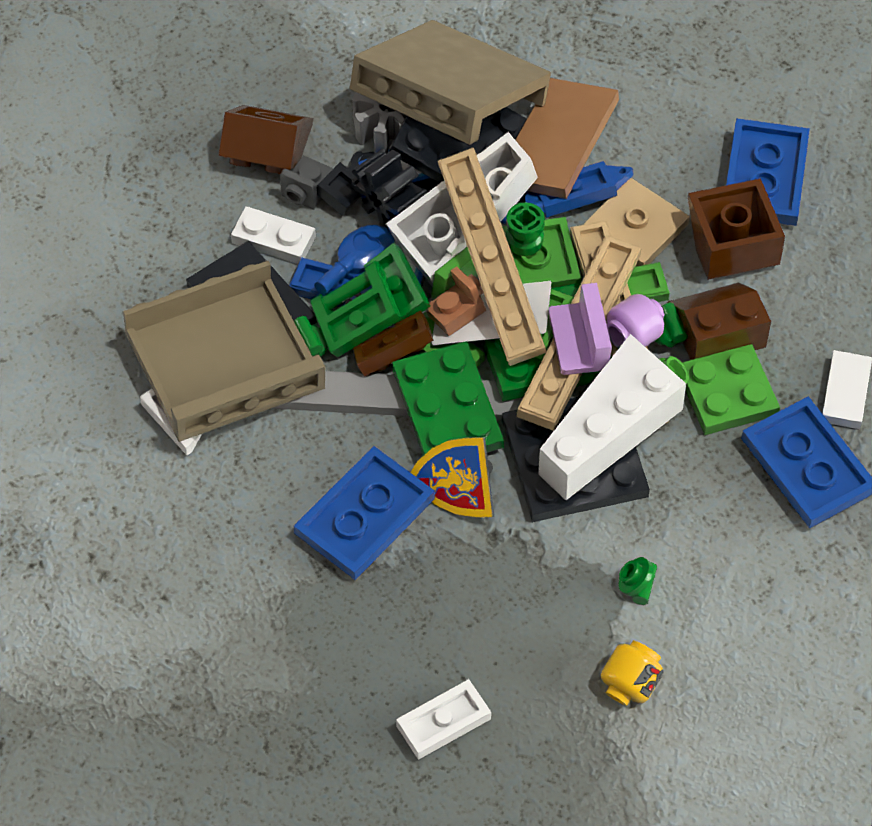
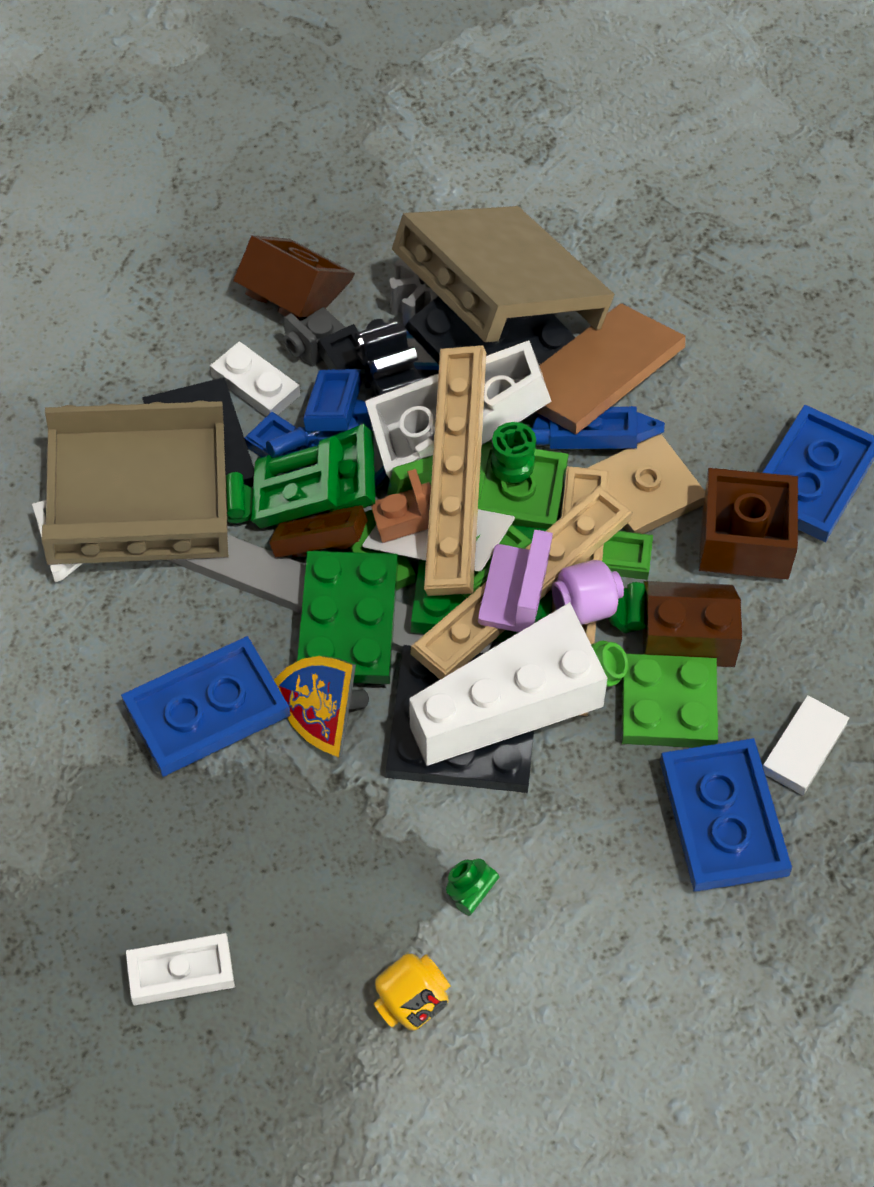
camera: 20 degrees right, 0 degrees up
(353, 231) = (332, 400): none -> blue tile

